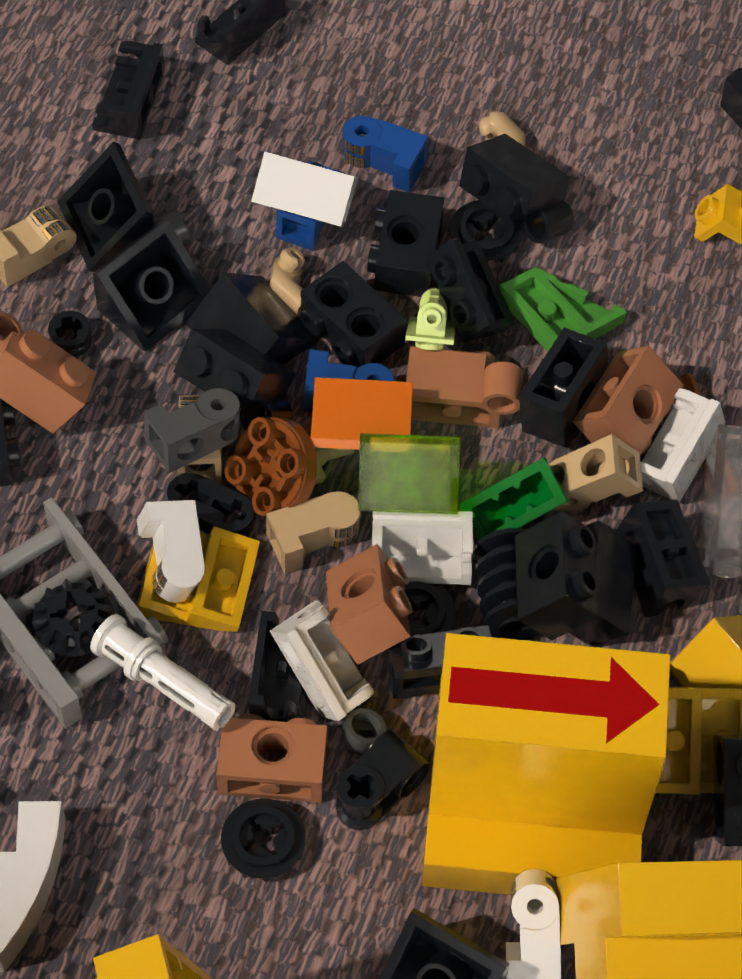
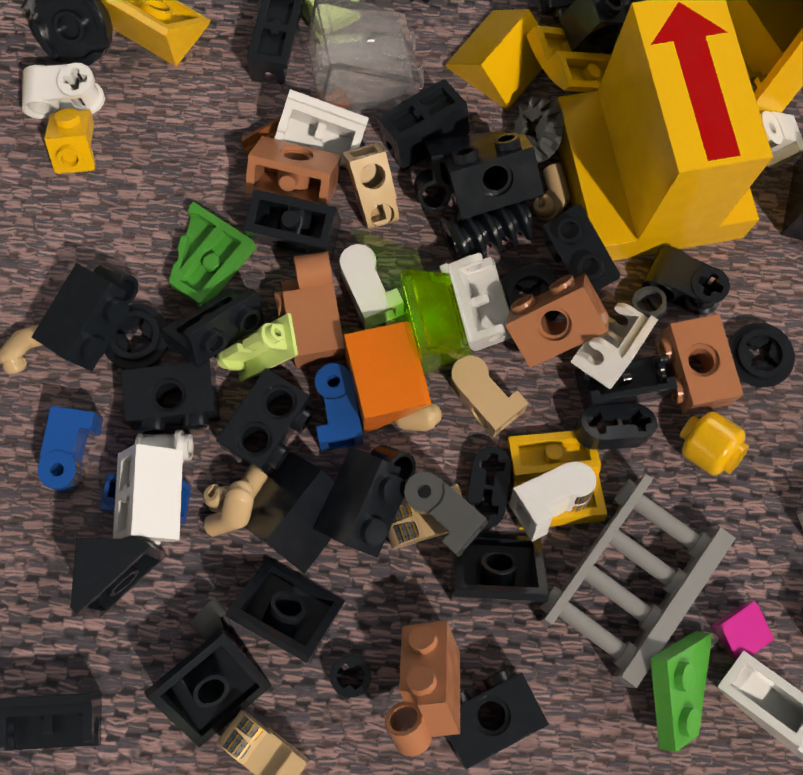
camera: 110 degrees left, 15 degrees up
(58, 633) = (647, 579): black gear -> none
(116, 481) = (500, 571): none -> black slope
(144, 661) = (675, 480): white pin -> none
(174, 742) = (713, 443): none -> yellow head
(220, 643) = (616, 432): none -> black beam
(238, 141) = (108, 571): none -> black slope
(270, 266) = (235, 510): none -> tan arm
(273, 464) = (448, 437): dark orange tile -> none
(354, 239) = (173, 441): none -> white pin
(486, 445) = (366, 289): none -> white leg
(516, 499) = (406, 239): green slope -> none

